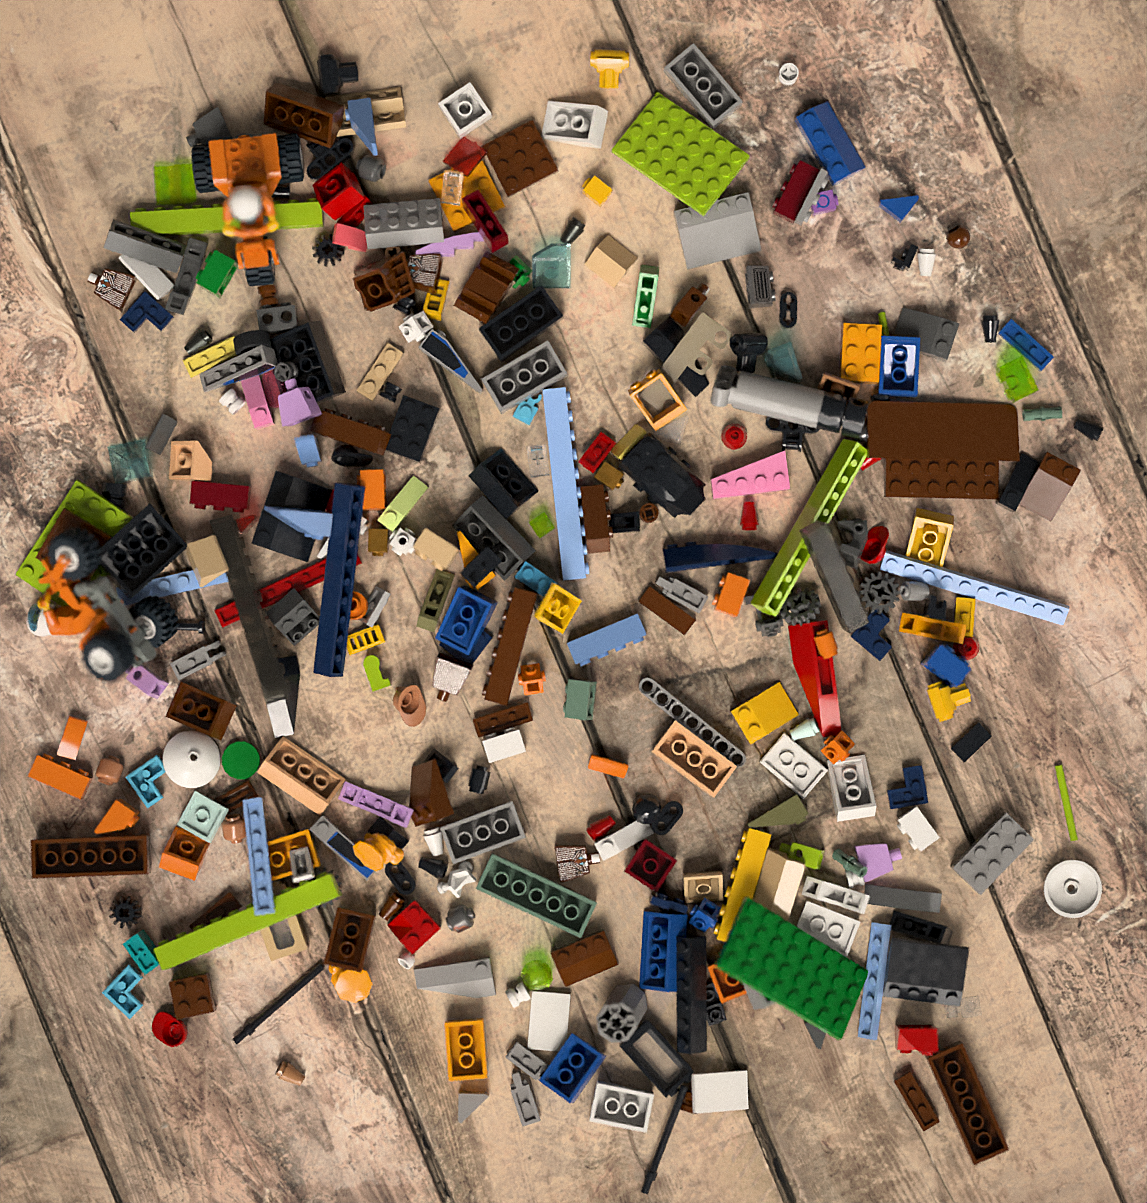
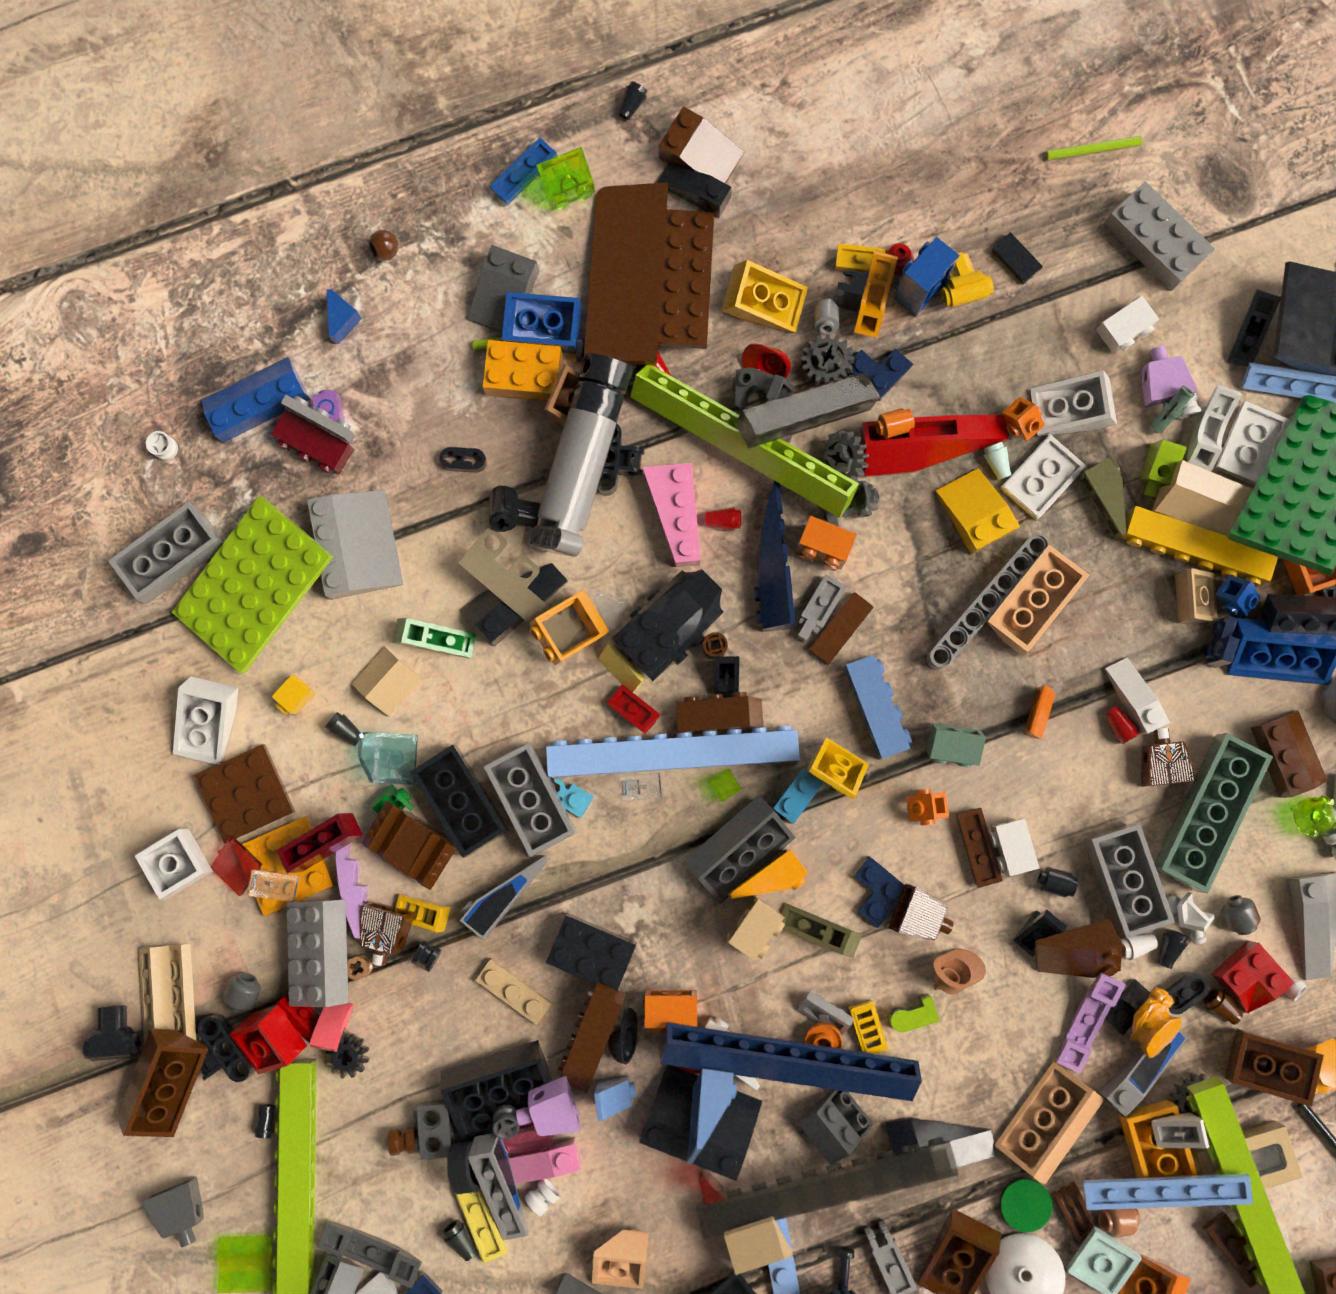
camera: 80 degrees left, 5 degrees down
(217, 273) = (367, 1213): green brick -> none
(220, 496) = (670, 1220): dark red brick -> none
(248, 174) = (240, 1172): piece -> none
(276, 591) = (799, 1144): red tile -> none
(362, 121) = (175, 1003): medium blue slope -> none
(378, 541) = (739, 1004): pearl gold brick -> none
(383, 282) = (393, 983): reddish brown slope -> none
(390, 391) = (540, 979): black wheel -> none
(402, 504) = (690, 969): yellowish green slope -> none
(410, 541) = (737, 961): white brick -> none
(415, 327) = (456, 941): white brick -> none
(466, 619) = (846, 891): blue slope -> none
(480, 566) = (779, 869): black hinge -> none
(503, 483) = (668, 833): black slope -> none
(510, 646) = (890, 834): reddish brown brick -> none
(609, 65) = (130, 672): yellow piece -> none
(609, 476) = (665, 694): pearl gold brick -> none
(646, 809) = (1098, 664): black hair -> none
(650, 865) = (1173, 662): dark red brick -> none
(668, 818) = (1109, 637): black plate -> none
(686, 308) = (449, 581): reddish brown torso -> none
(729, 432) = (615, 538): red cone -> none
(759, 287) = (430, 493): slope -> none
(784, 362) = (529, 463): clear light blue slope -> none
(903, 898) = (1214, 348): dark grey slope -> none
(908, 256) = (404, 307): black bracket -> none
(914, 791) = (1081, 330): dark blue plate -> none
(926, 261) = (411, 286): white cone -> none
(974, 587) = (824, 245): light blue plate -> none
(990, 327) = (499, 213): black cone -> none
(1042, 413) = (610, 155): sand green pin -> none
(1086, 888) = (1214, 131): white dish -> none

